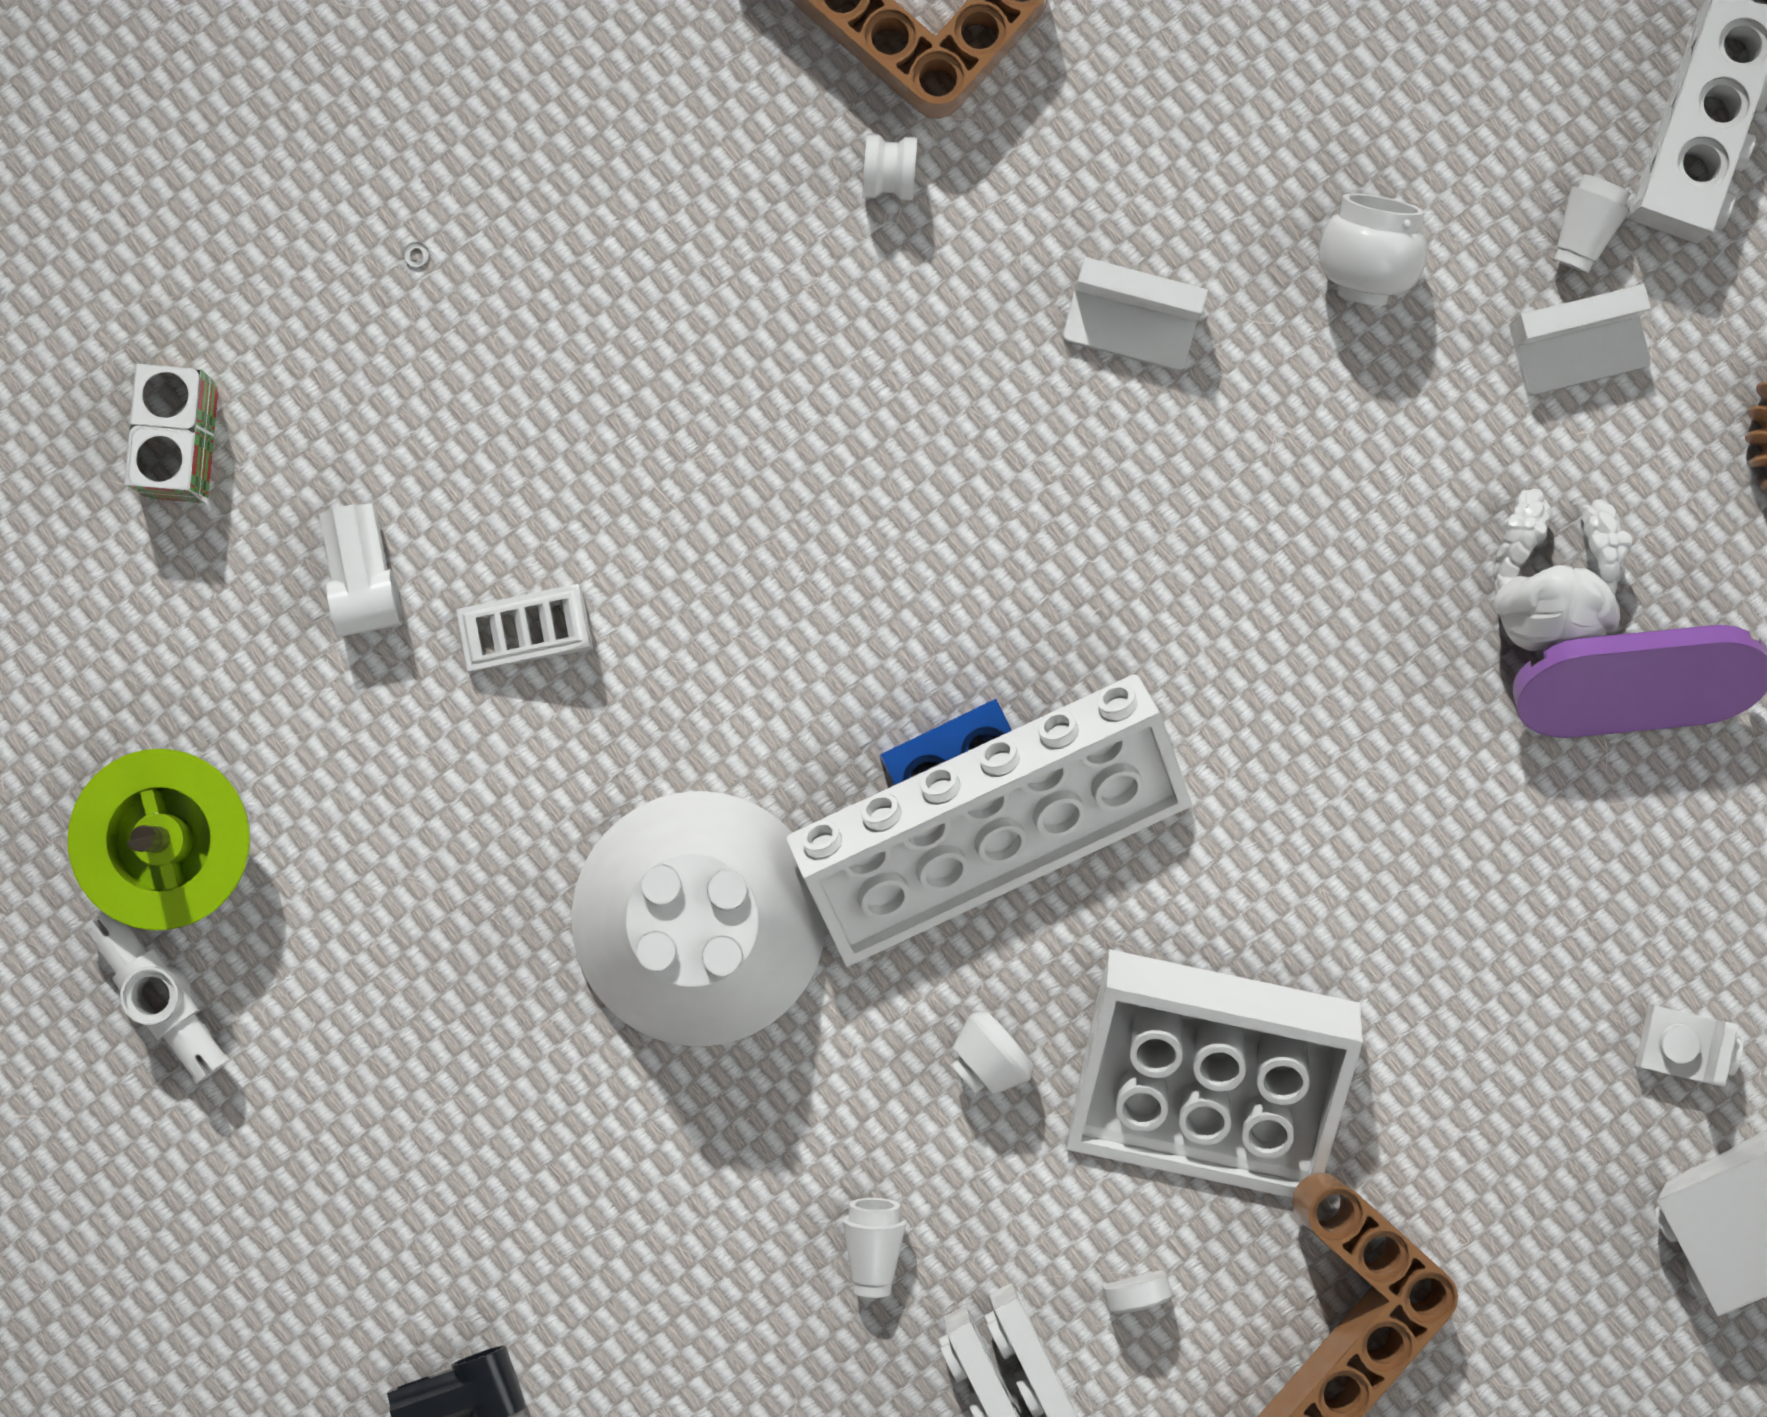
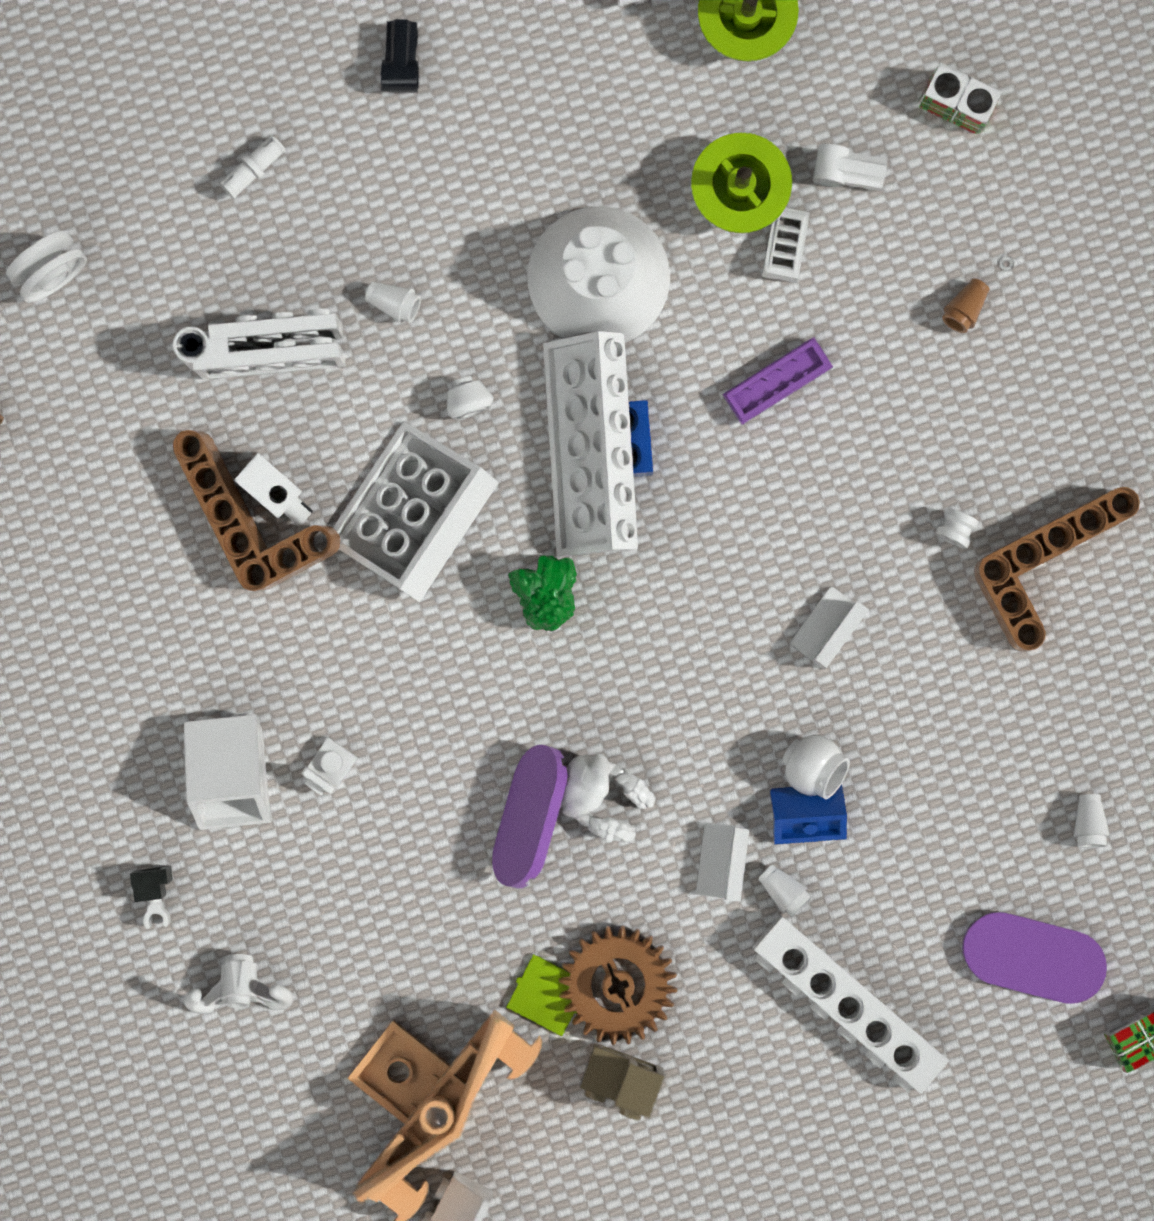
camera: 125 degrees right, 0 degrees up
(455, 738) = (741, 182): none -> lime piece
(516, 291) = (966, 306): none -> medium nougat cone
(759, 553) = (777, 381): none -> medium lavender plate
(1137, 1292) = (315, 428): white tile -> none
(1255, 1346) = (260, 477): none -> white torso
(1262, 799) = (546, 592): none -> green hair
(1460, 230) = (807, 818): none -> blue panel

